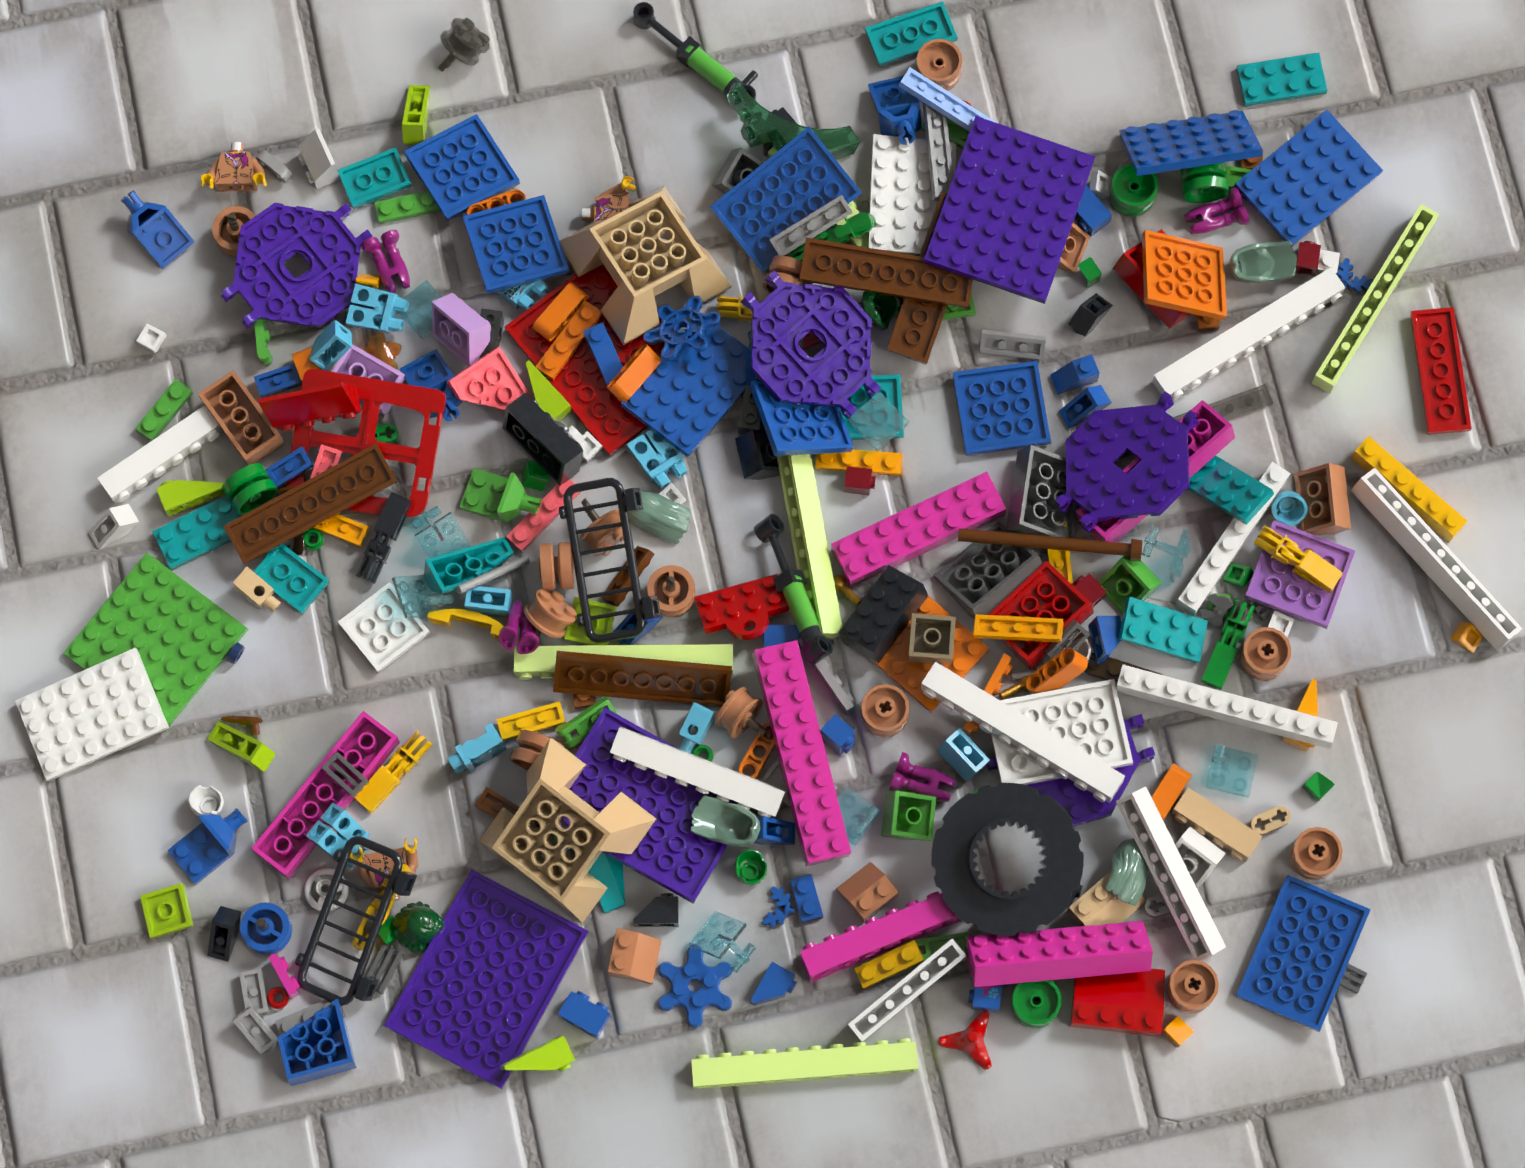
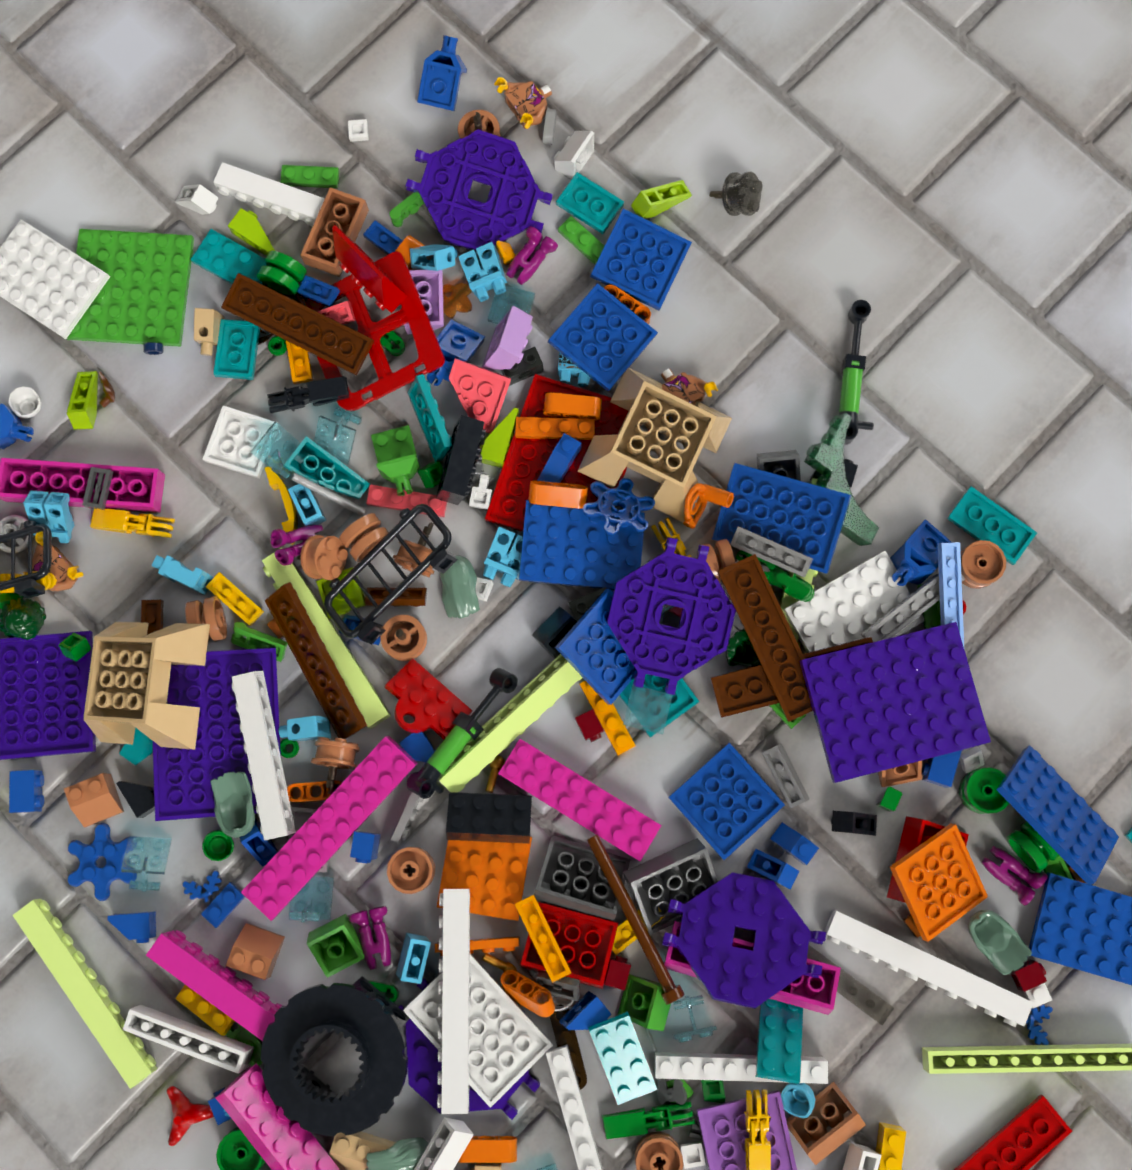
camera: 60 degrees right, 5 degrees up
(479, 888) = (74, 647): none -> green slope
(483, 442) = (429, 418): none -> teal plate
(721, 246) = (705, 493): none -> orange piece
(931, 639) = (489, 872): dark tan brick -> none

